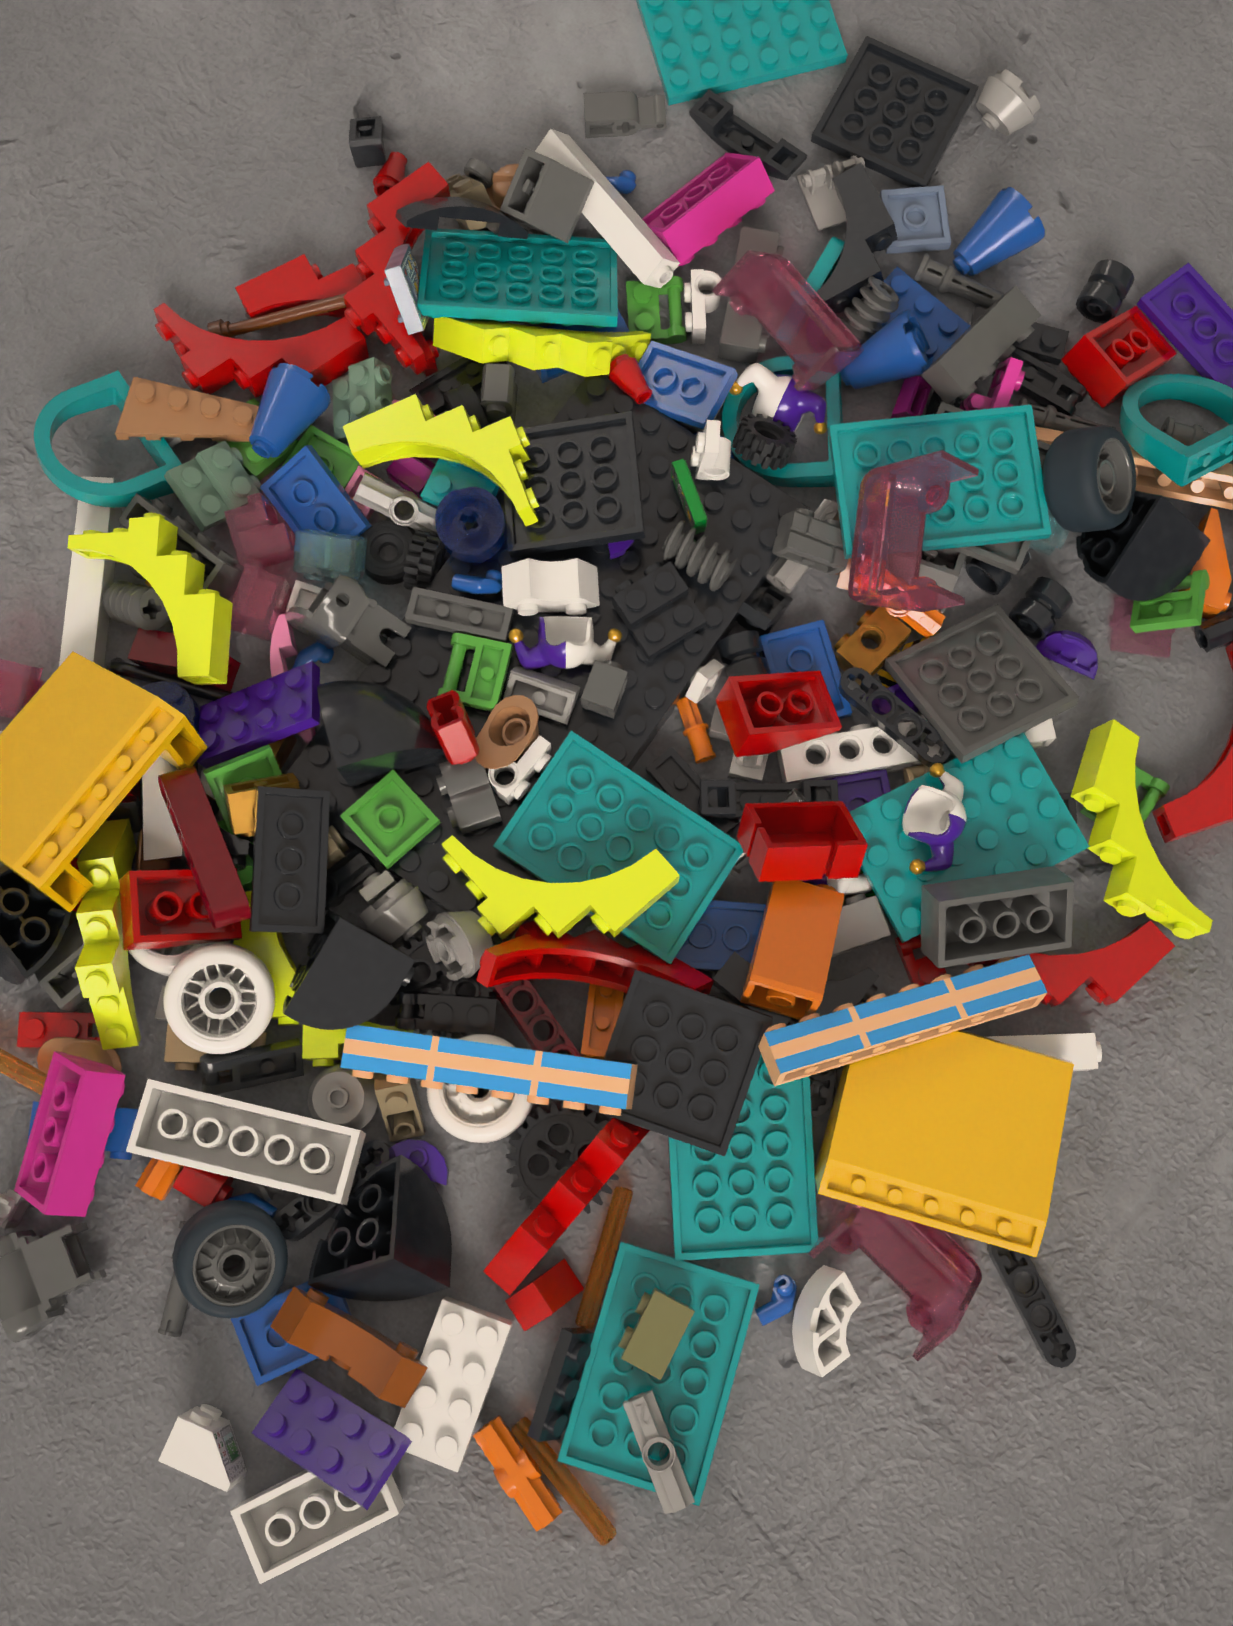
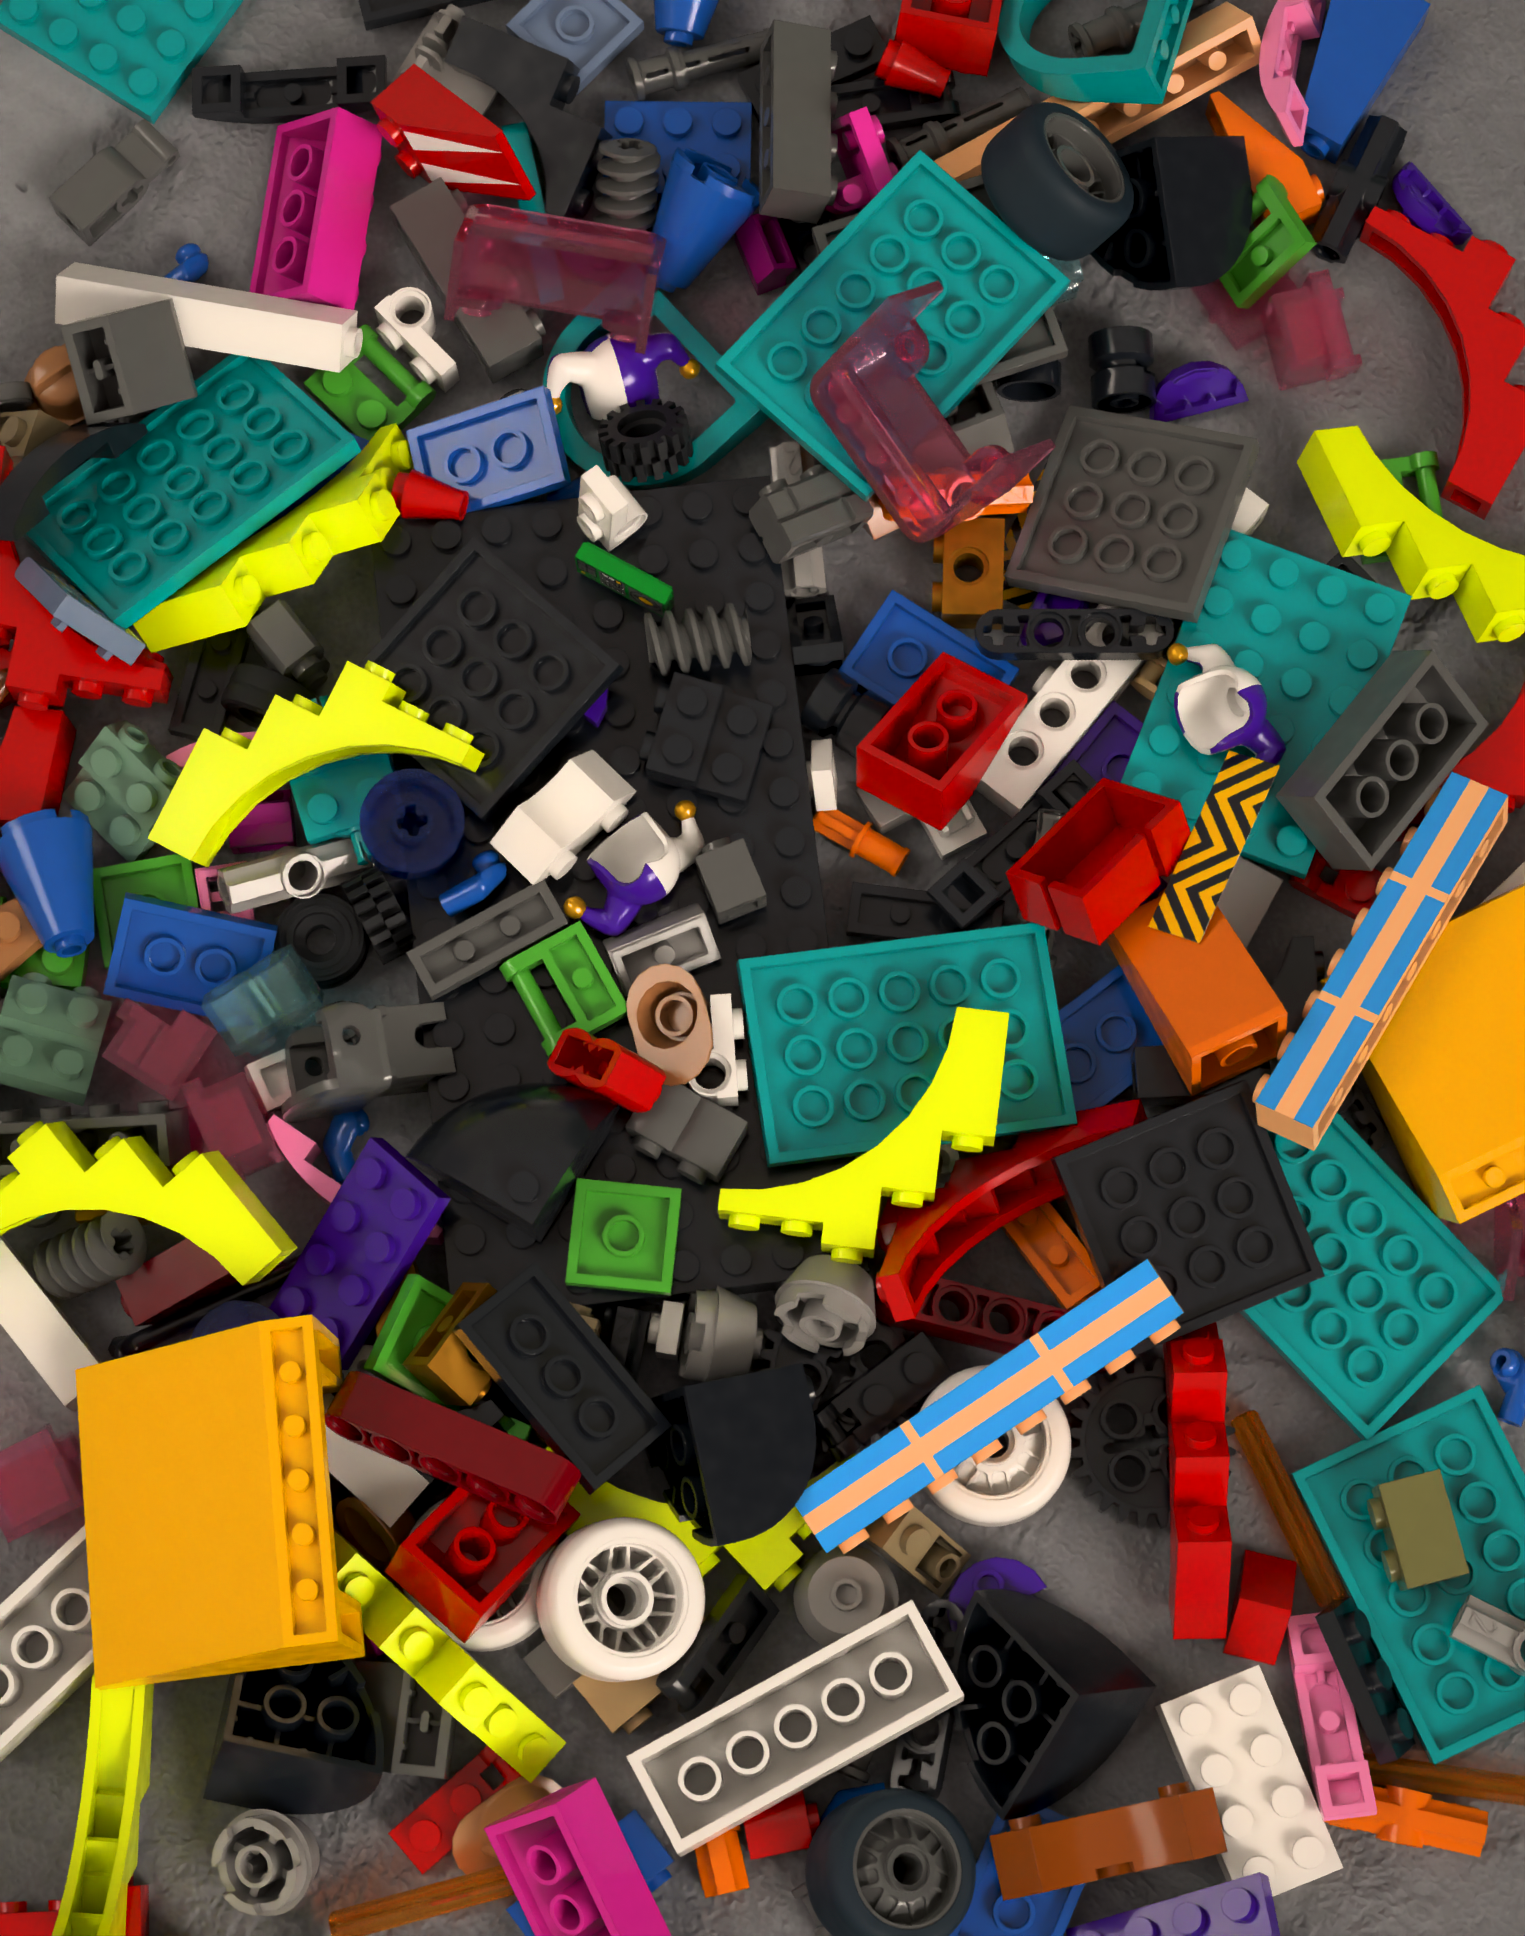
camera: 40 degrees left, 0 degrees up
(519, 1392) = (1328, 1725): none -> bright pink slope
(798, 214) = (447, 138): none -> red slope
(866, 883) = (1214, 846): none -> sticker
(1064, 369) = (911, 70): none -> red cone
(1156, 670) = (1309, 334): none -> clear pink plate

